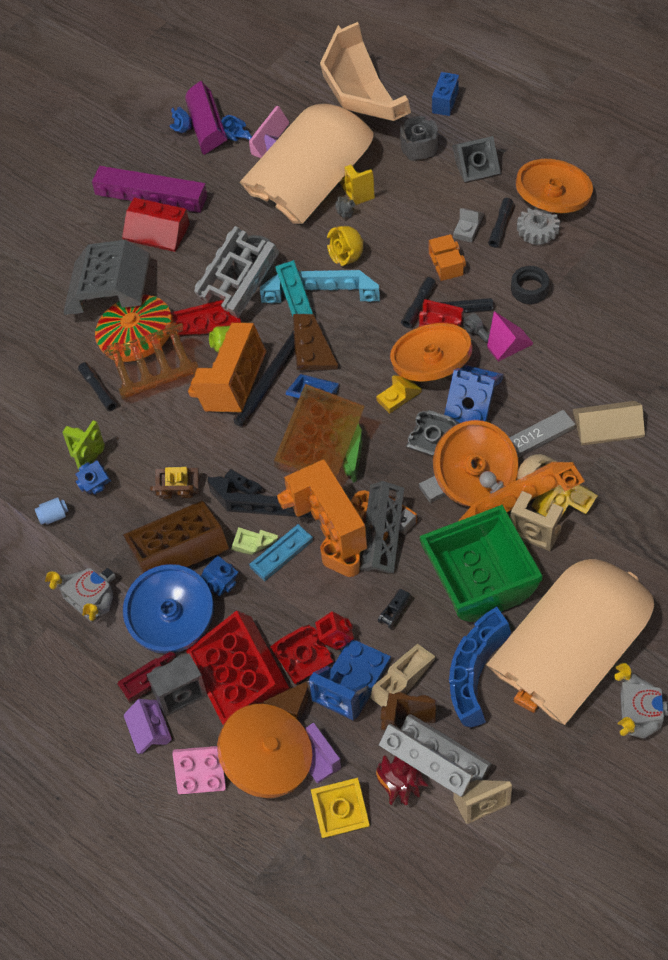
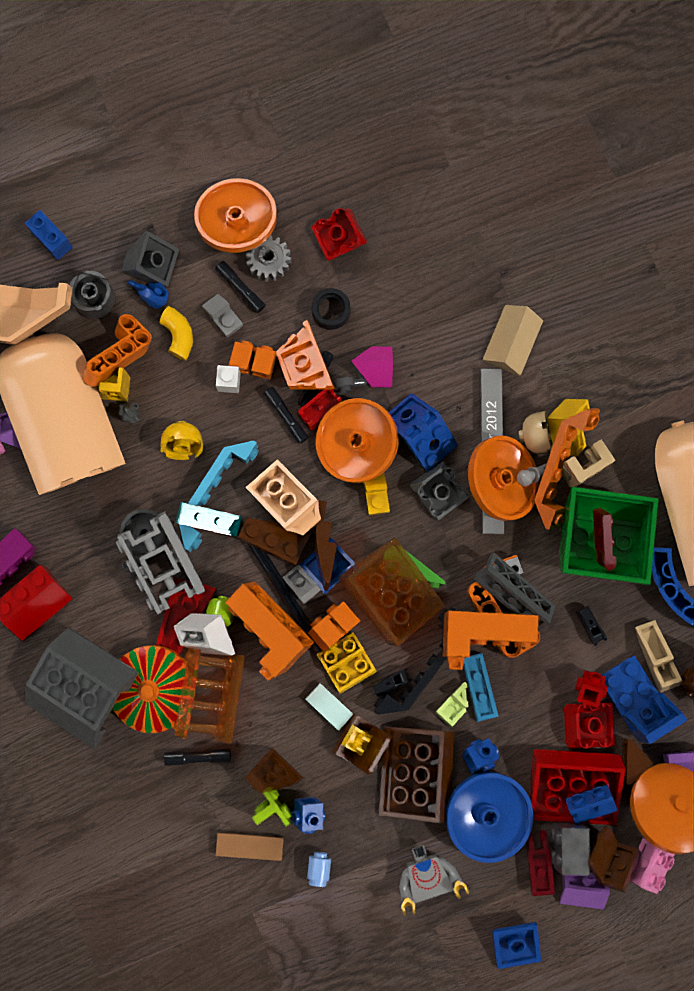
camera: 70 degrees left, 25 degrees up
(44, 458) = (249, 846): none -> medium nougat tile
(66, 693) = (516, 945): none -> blue slope
(112, 428) = (272, 773): none -> reddish brown wing
(185, 719) = (613, 861): none -> reddish brown bracket
(194, 450) = (329, 706): none -> light aqua slope
(197, 330) = (204, 633): none -> white slope
(227, 682) = (591, 804): none -> blue bracket
(239, 446) = (347, 663): none -> yellow slope
(253, 409) = (333, 626): none -> orange piece
(282, 380) = (301, 583): none -> light grey slope
(323, 372) = (324, 549): none -> reddish brown slope
(345, 327) = (285, 499): none -> light nougat slope
(385, 173) = (132, 345): none -> orange beam
(418, 249) = (228, 379): none -> white brick
(433, 204) = (180, 331): none -> yellow cylinder
(448, 174) = (154, 296): none -> blue piece
(470, 286) = (303, 362): none -> orange wing
(474, 559) = (604, 539): none -> dark red hinge
(599, 258) = (338, 233): none -> red slope

